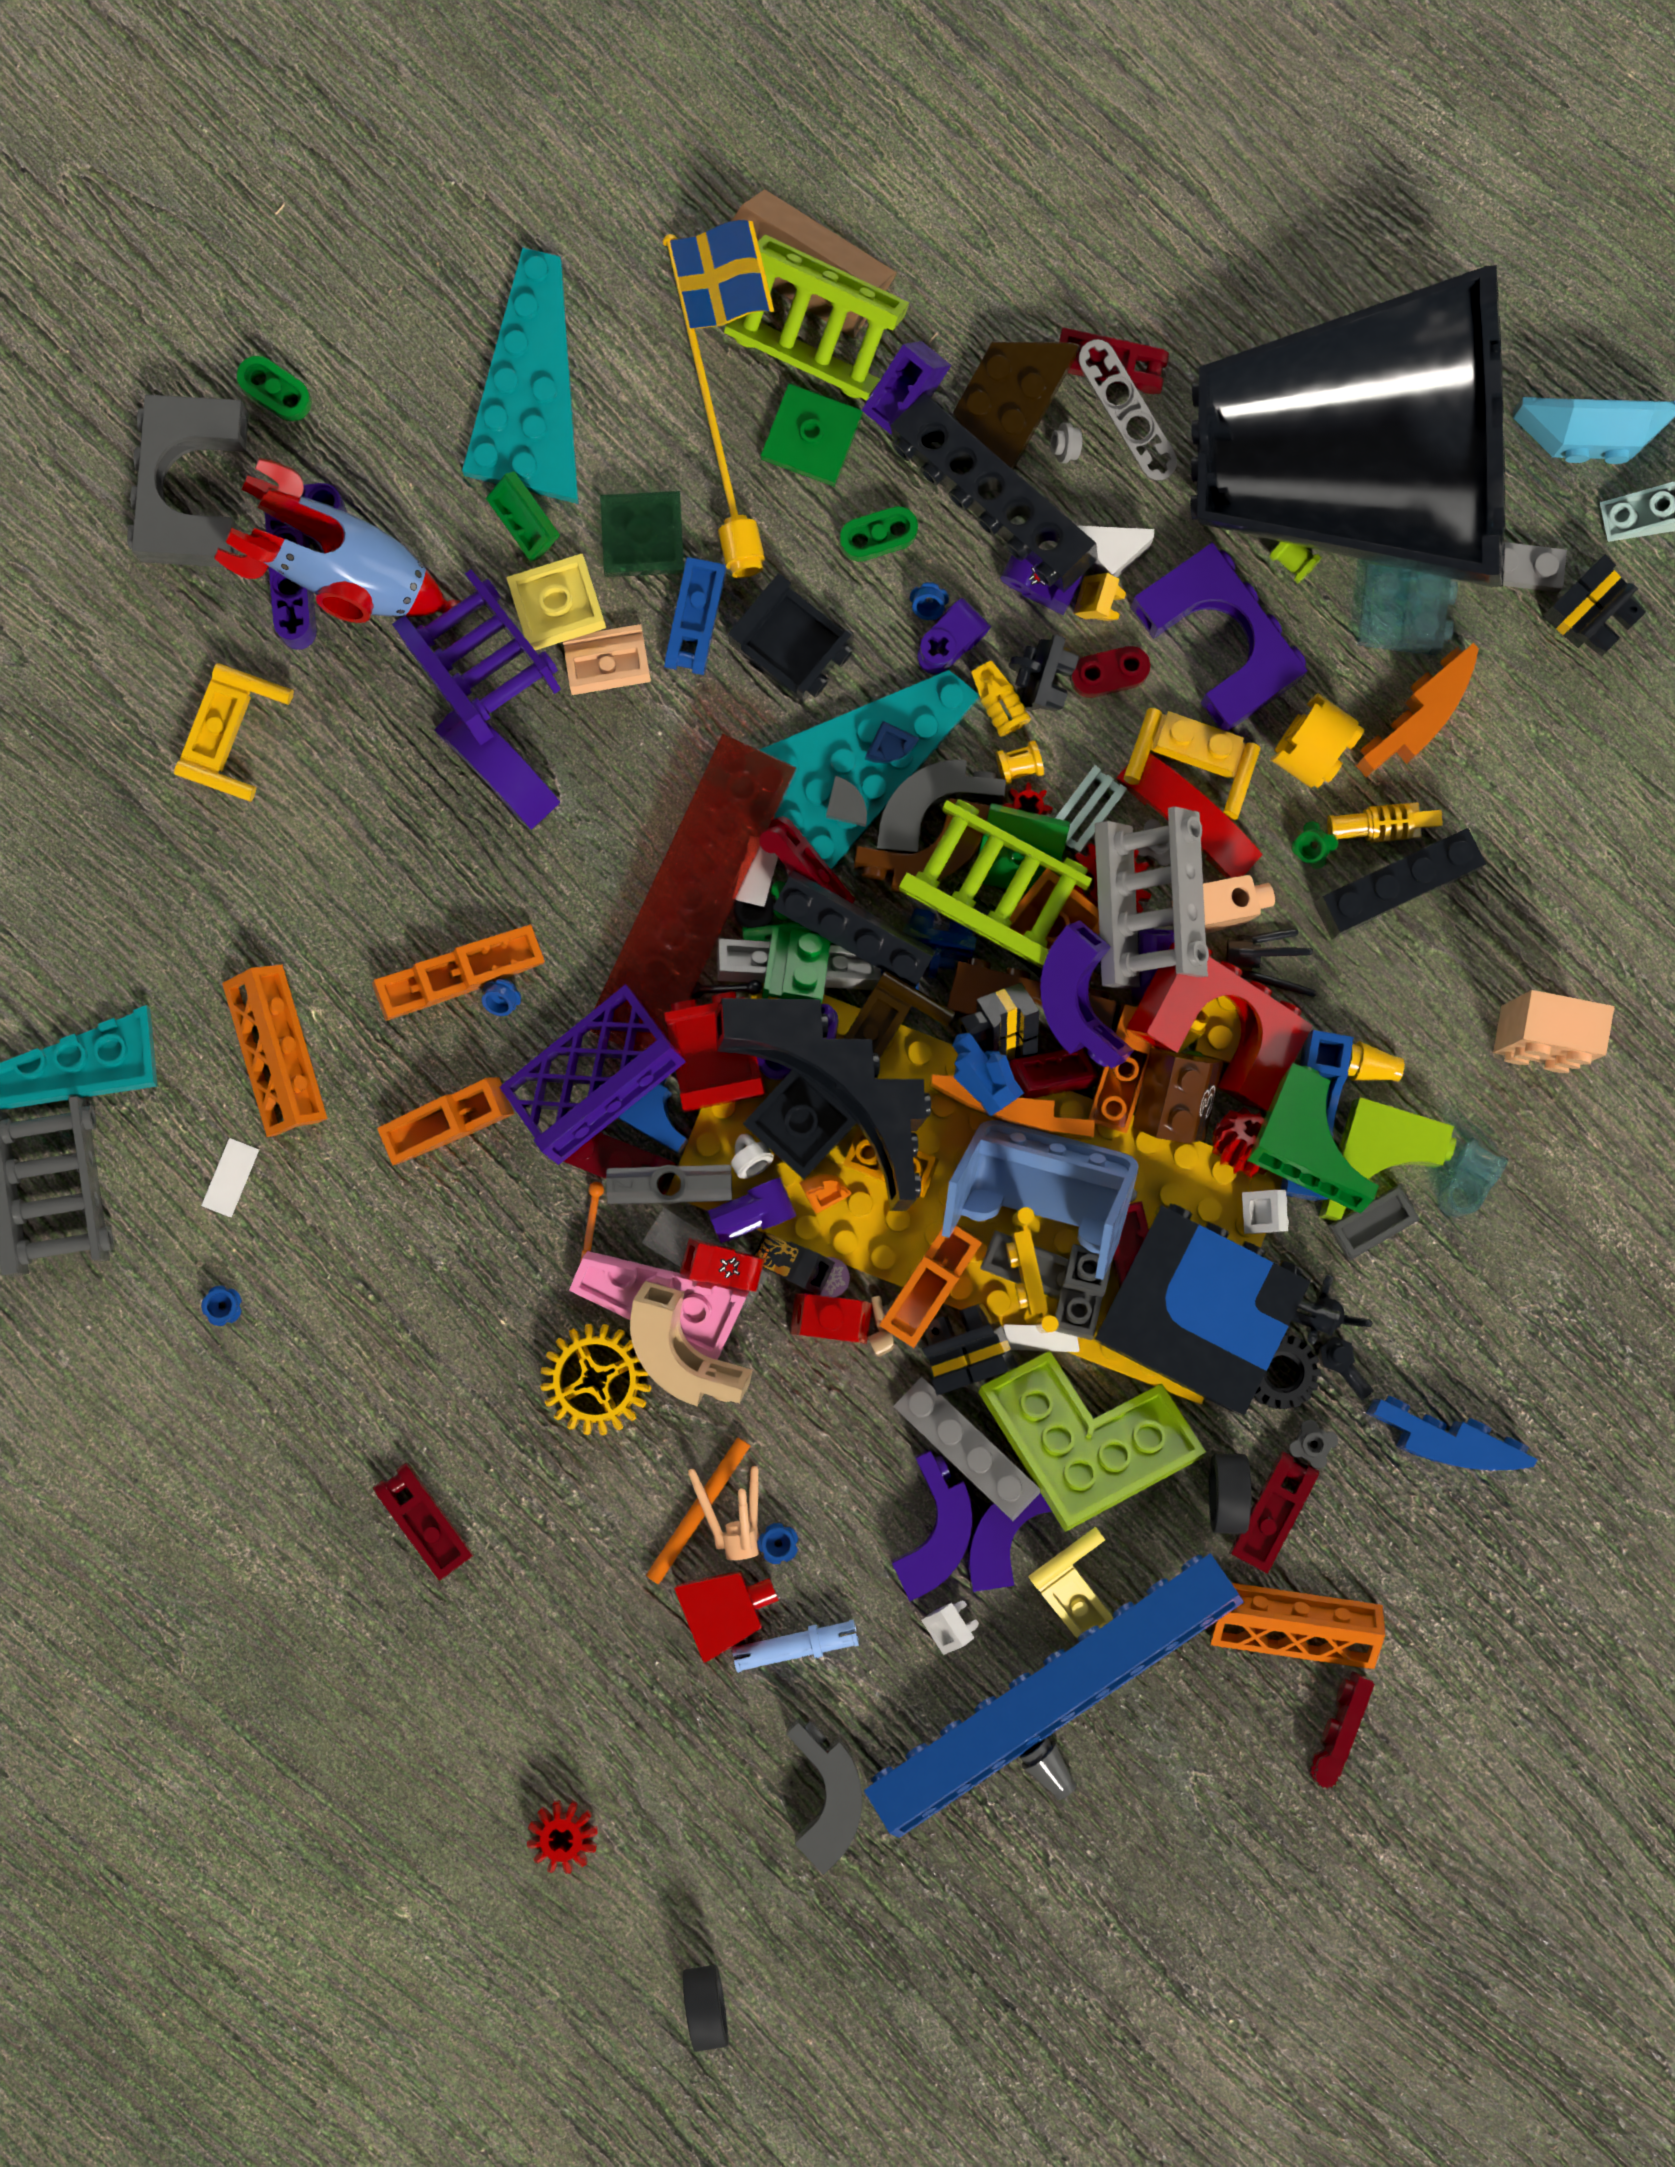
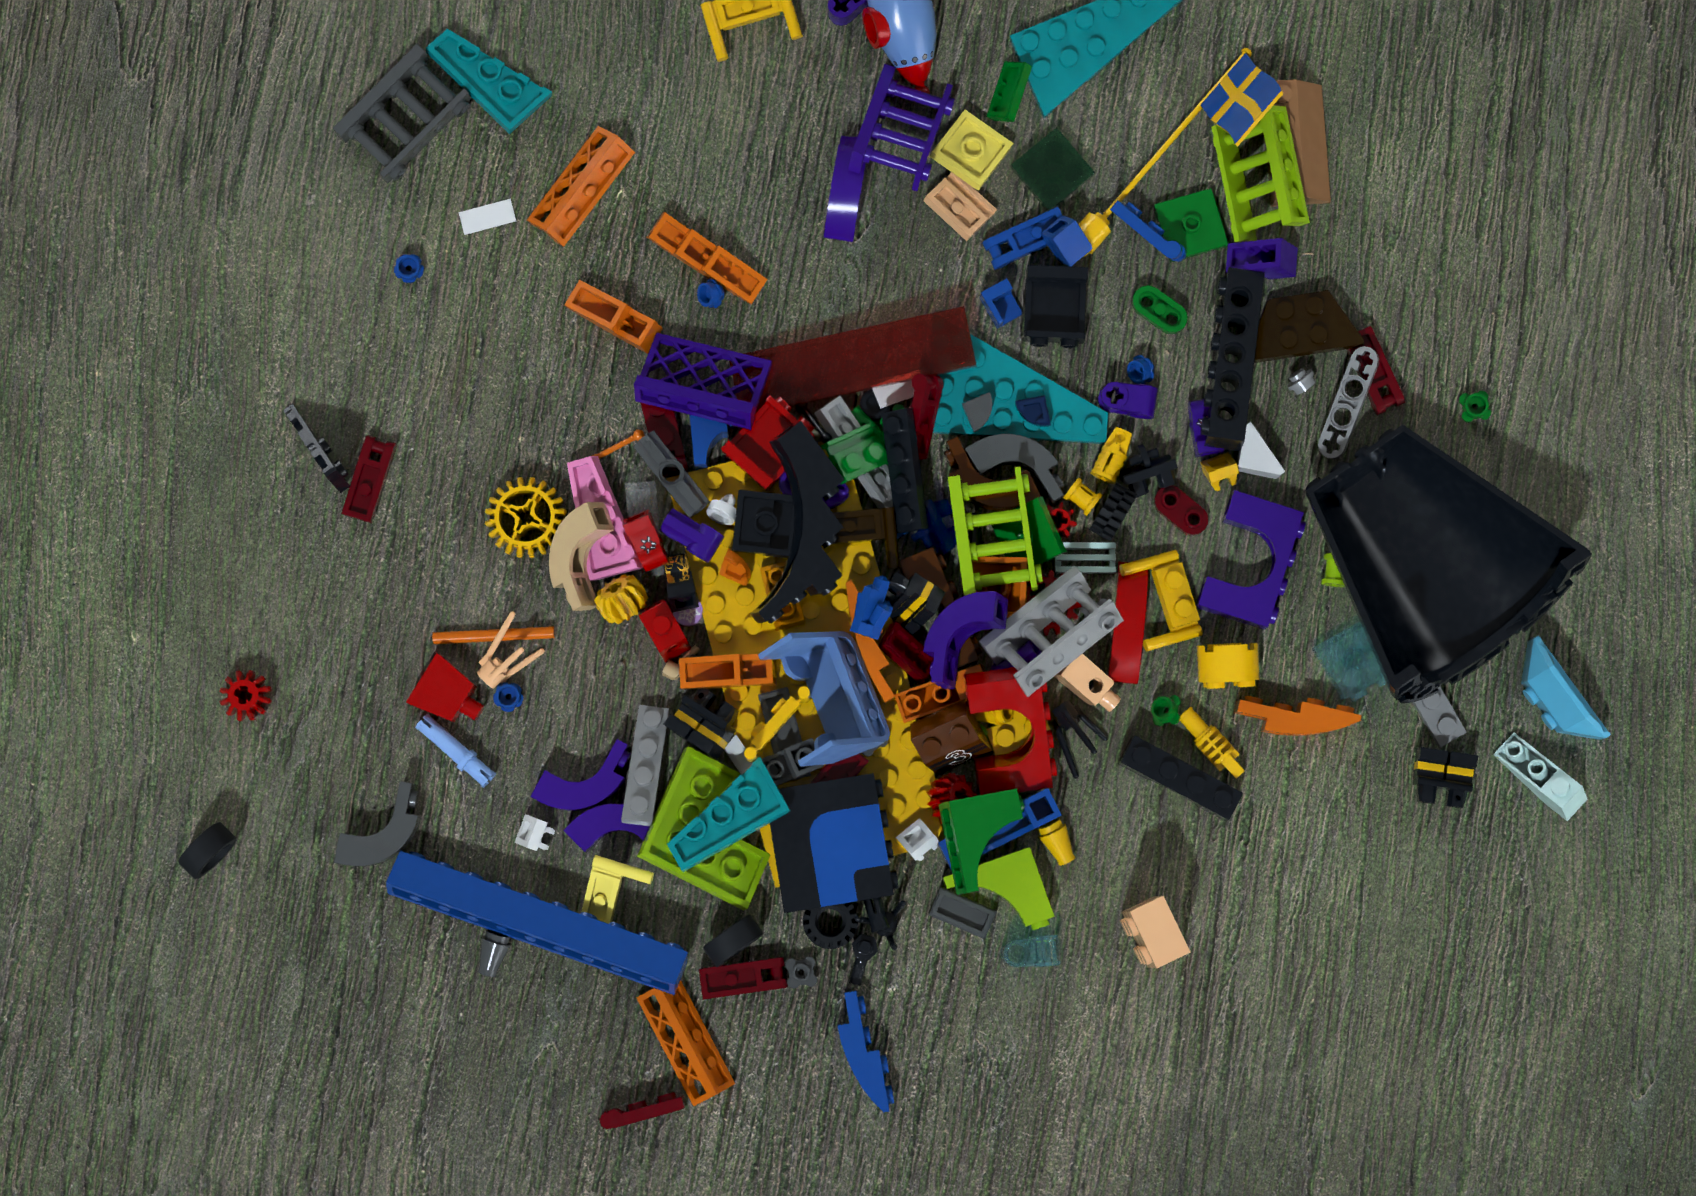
camera: 55 degrees right, 0 degrees up
(351, 1554) = (319, 449): none -> black wing
(732, 573) = (1066, 240): none -> blue panel
(745, 696) = (1000, 303): none -> blue panel
(764, 1340) = (621, 599): none -> yellow gear
(789, 479) = (1151, 232): none -> blue plate
(1063, 741) = (1113, 512): none -> black tyre
(1098, 1382) = (736, 813): none -> teal wing
(1232, 276) = (1480, 400): none -> green plate

